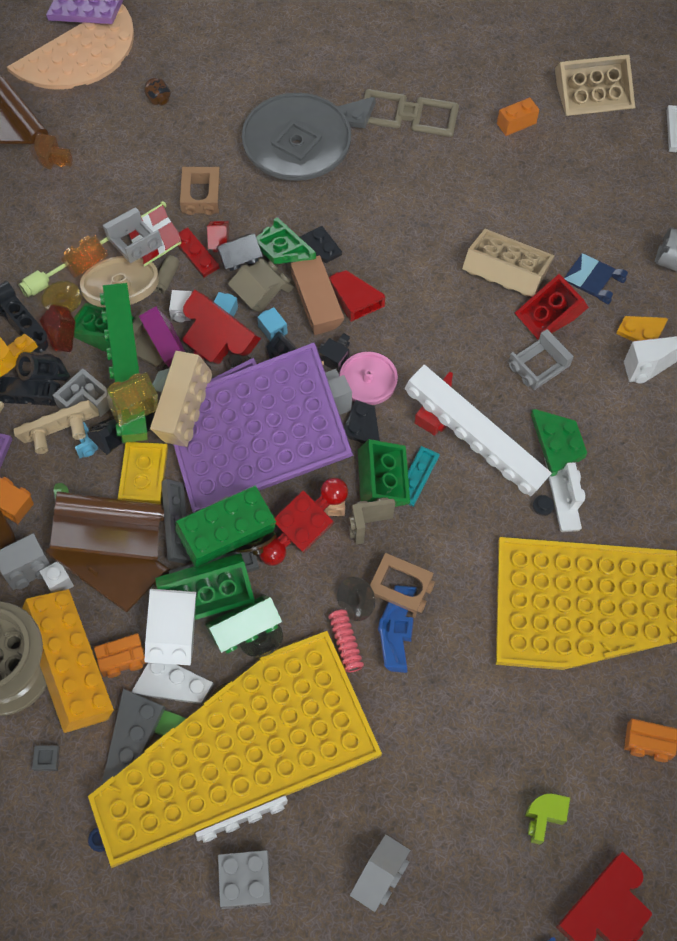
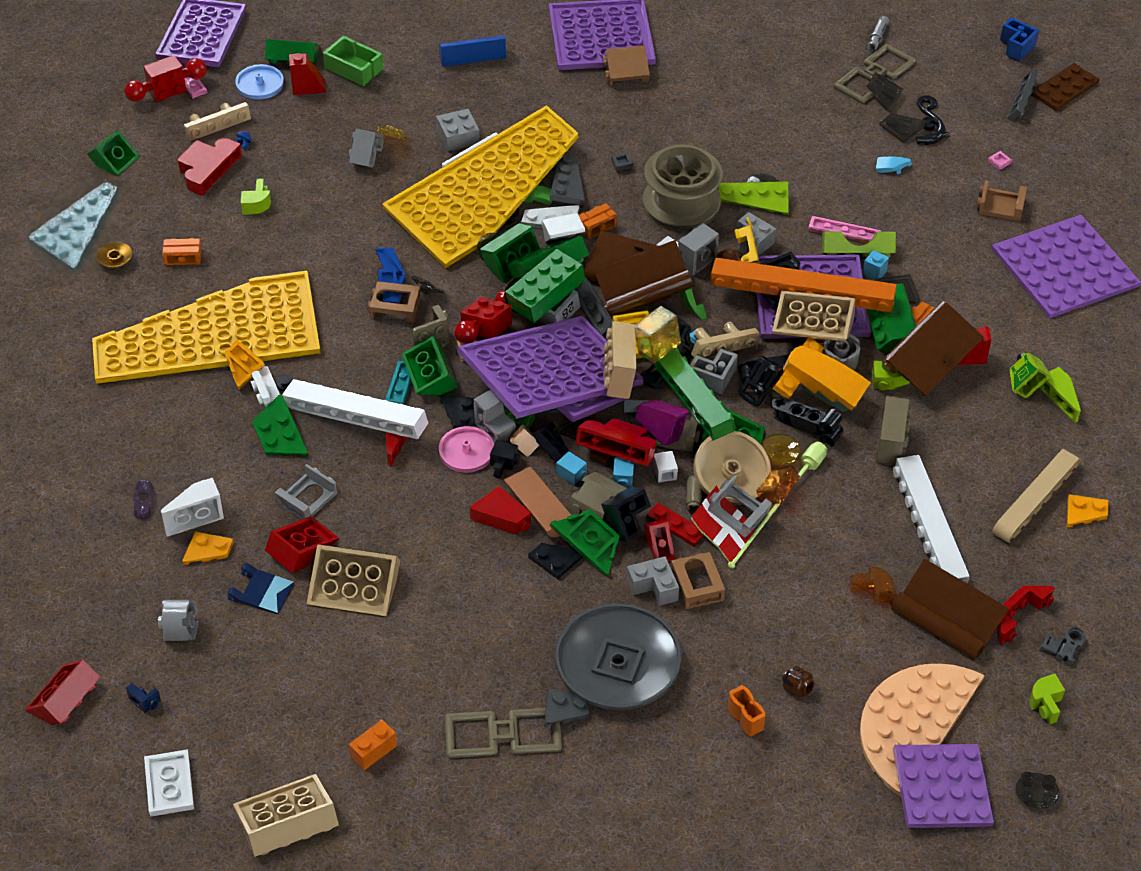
camera: 165 degrees right, 15 degrees down
(59, 327) = (767, 418): clear red slope -> none
(69, 662) = (633, 203): light orange brick -> none
(210, 73) = (746, 710): none -> orange brick
(239, 199) = (656, 577): none -> light grey brick
(342, 897) = (392, 132): none -> clear yellow wing
(345, 640) = (428, 262): coral piece -> none
(590, 531) = (242, 363): none -> light orange wing

